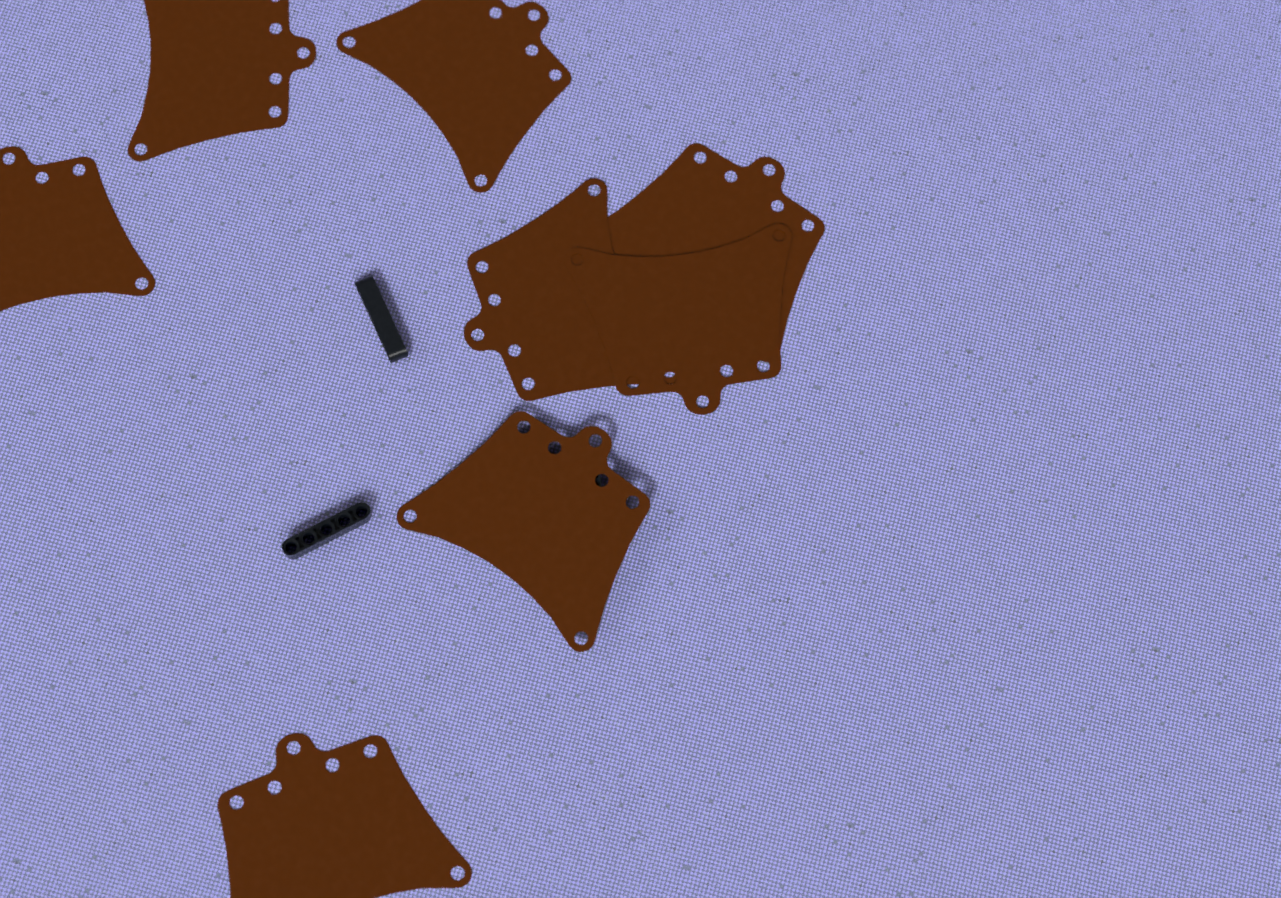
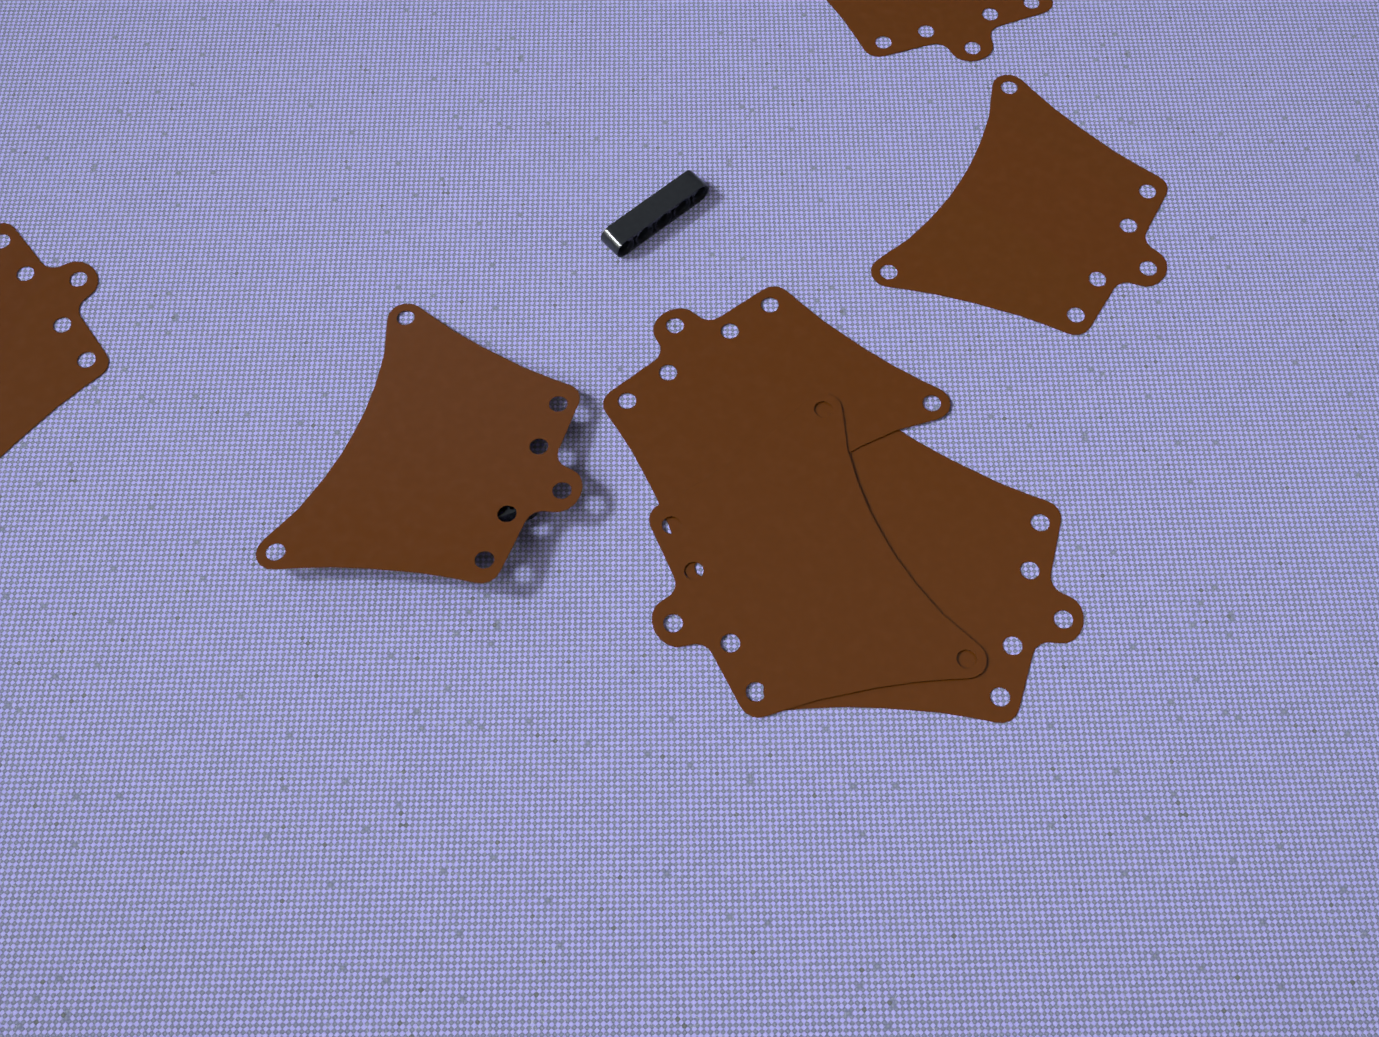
camera: 80 degrees right, 10 degrees down
(332, 522) = (359, 232): black beam -> none

